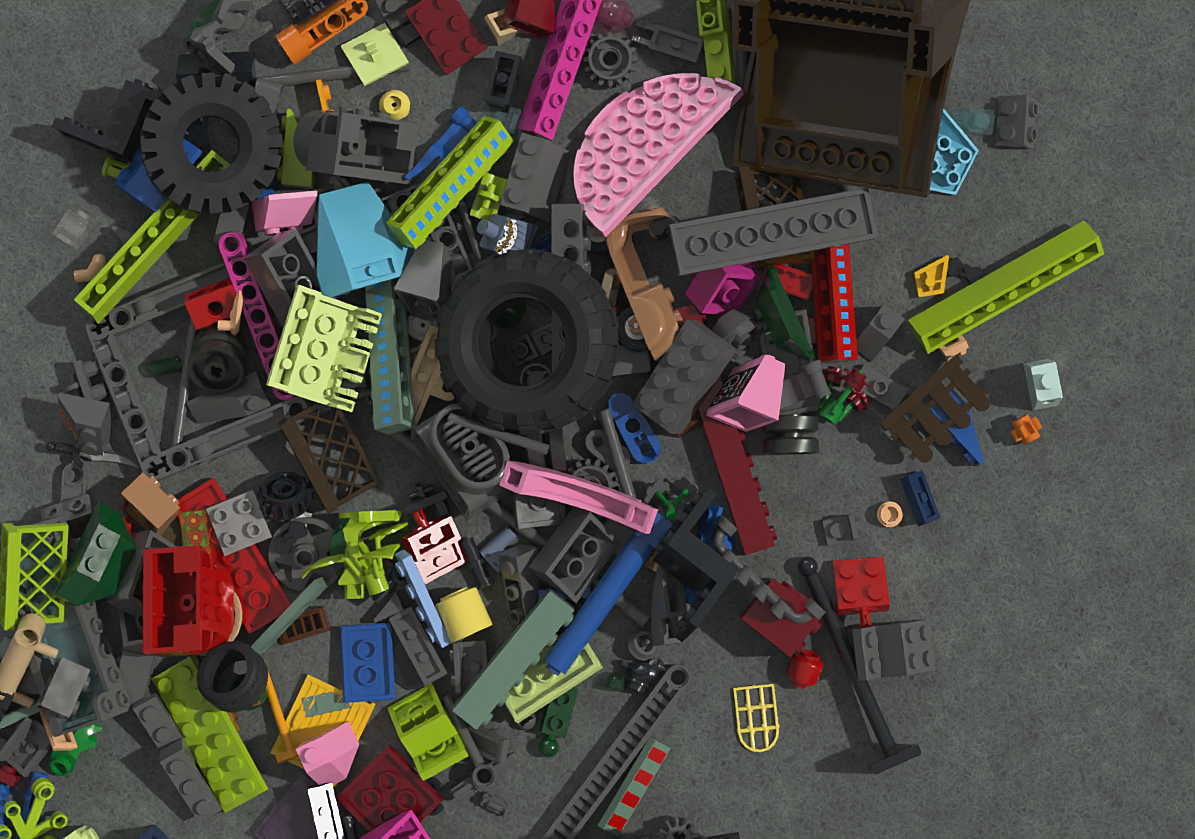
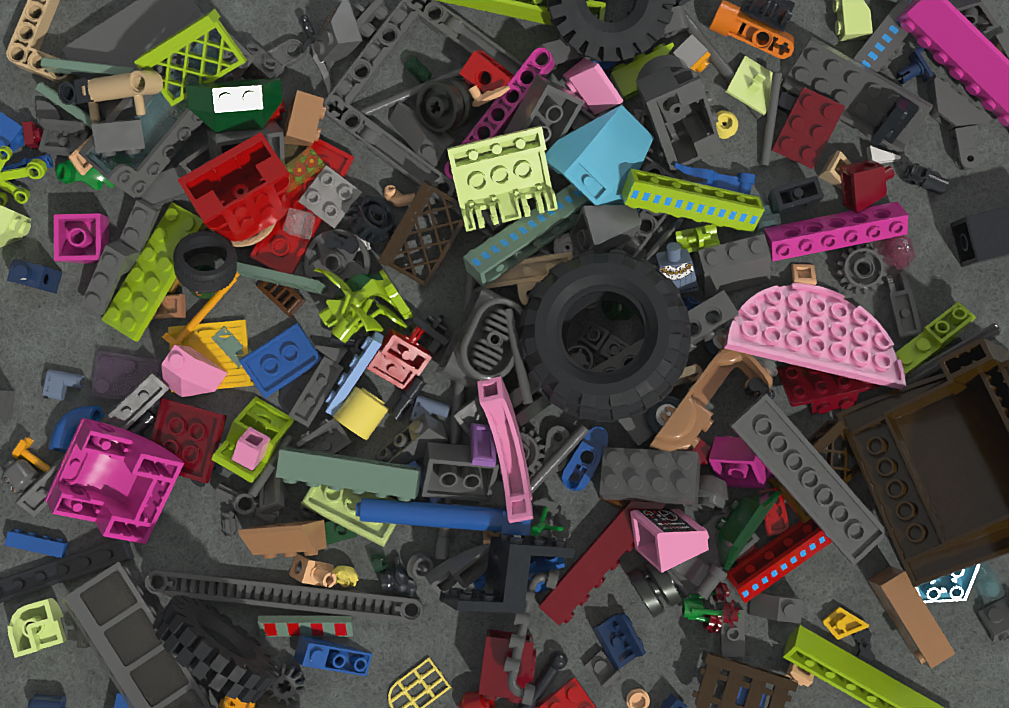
camera: 50 degrees right, 0 degrees up
(136, 785) = (80, 237): none -> dark pink slope
(248, 566) = (299, 223): none -> clear brick
(254, 737) = (171, 307): none -> nougat plate
(277, 460) = (396, 198): none -> light nougat arm
(306, 97) = (690, 51): none -> light grey brick
(416, 58) = (770, 119): none -> dark grey bar
(435, 736) = (251, 448): none -> bright pink brick
(540, 756) = (285, 538): none -> medium nougat slope
(562, 517) = (482, 445): none -> medium lavender tile
(582, 116) = (803, 274): none -> light nougat slope
(587, 749) = (313, 572): none -> light nougat bracket
(608, 723) = (345, 576): none -> light yellow plate
(677, 778) = (331, 656): none -> blue slope
(700, 167) = (820, 389): none -> dark red bracket
(822, 497) = (619, 639): none -> dark blue bracket
(960, 212) = (911, 617): none -> medium nougat brick

